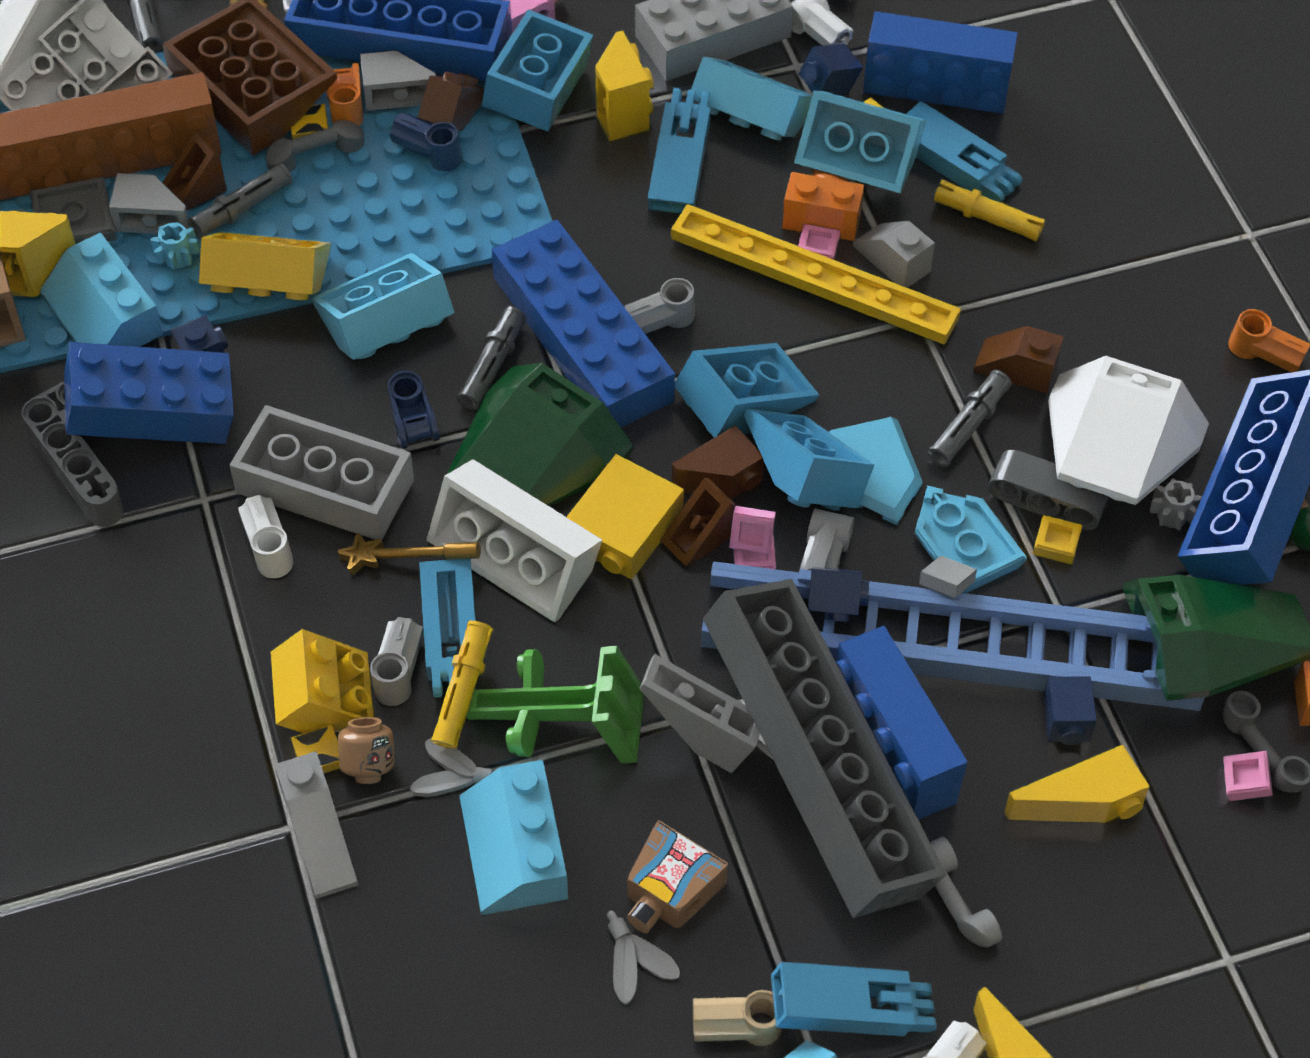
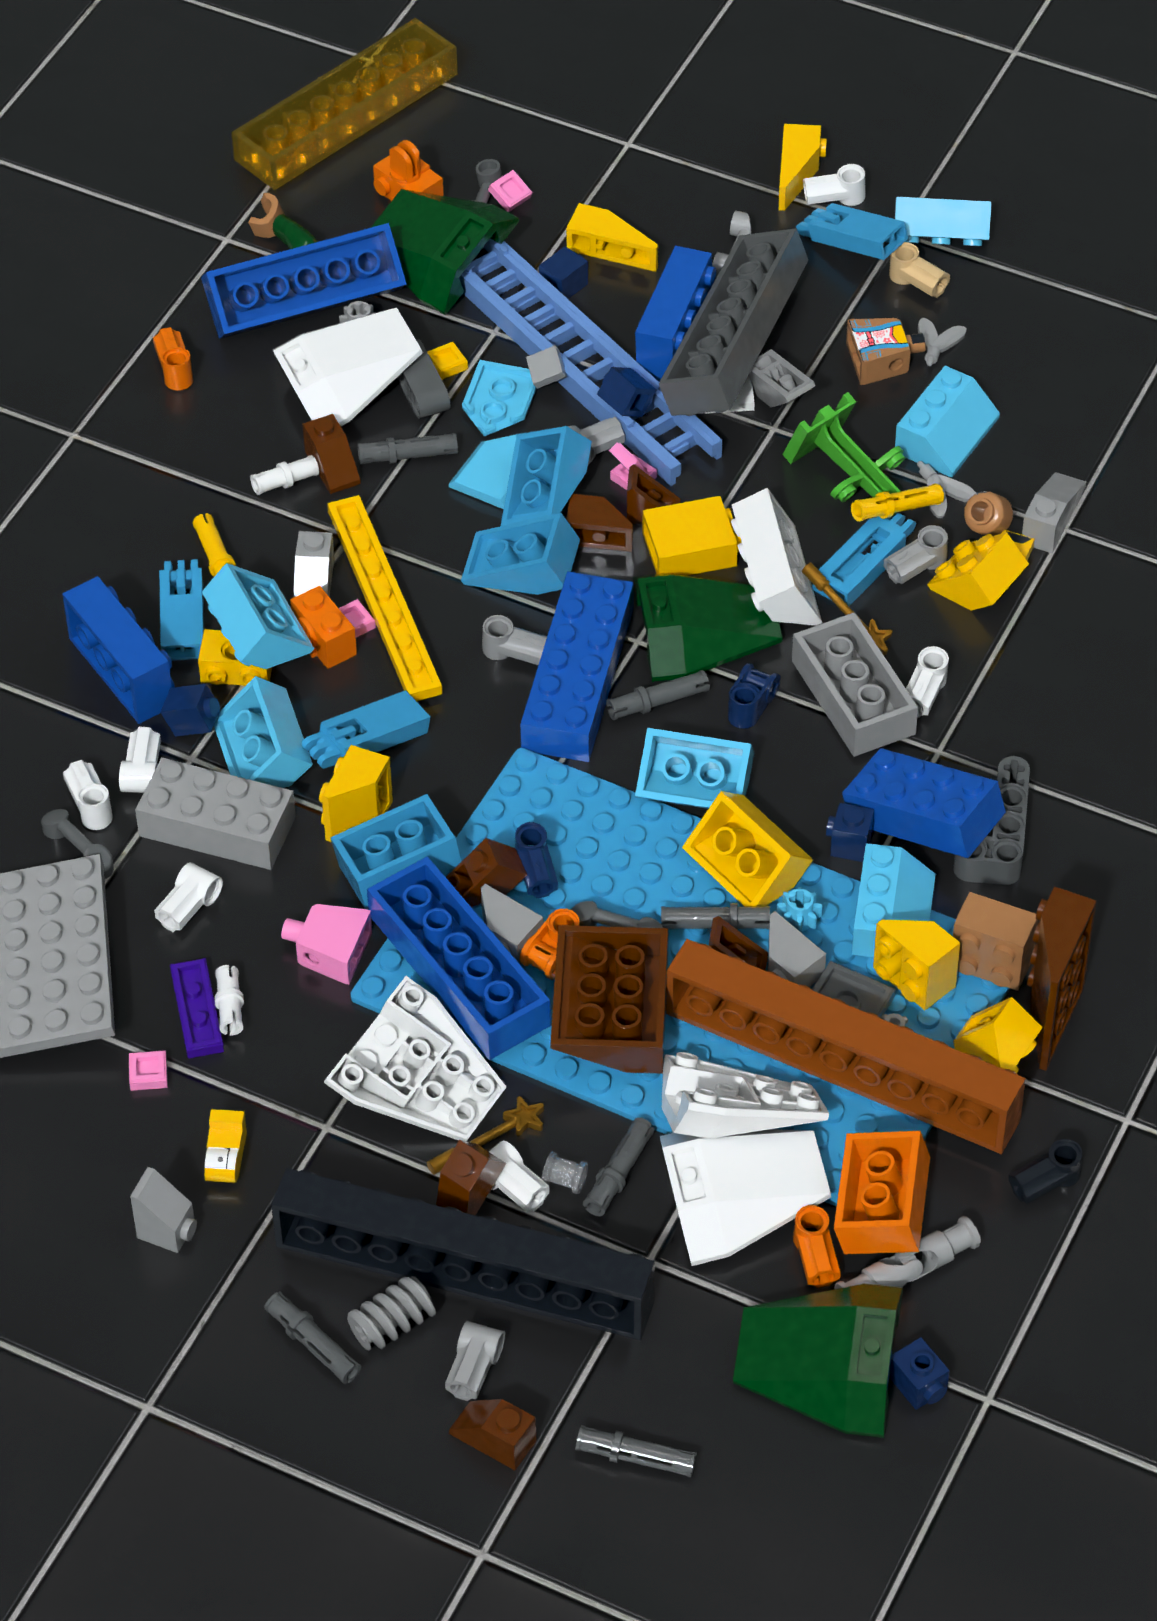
camera: 135 degrees left, 5 degrees down
(1034, 311) = (284, 474): none -> white pin

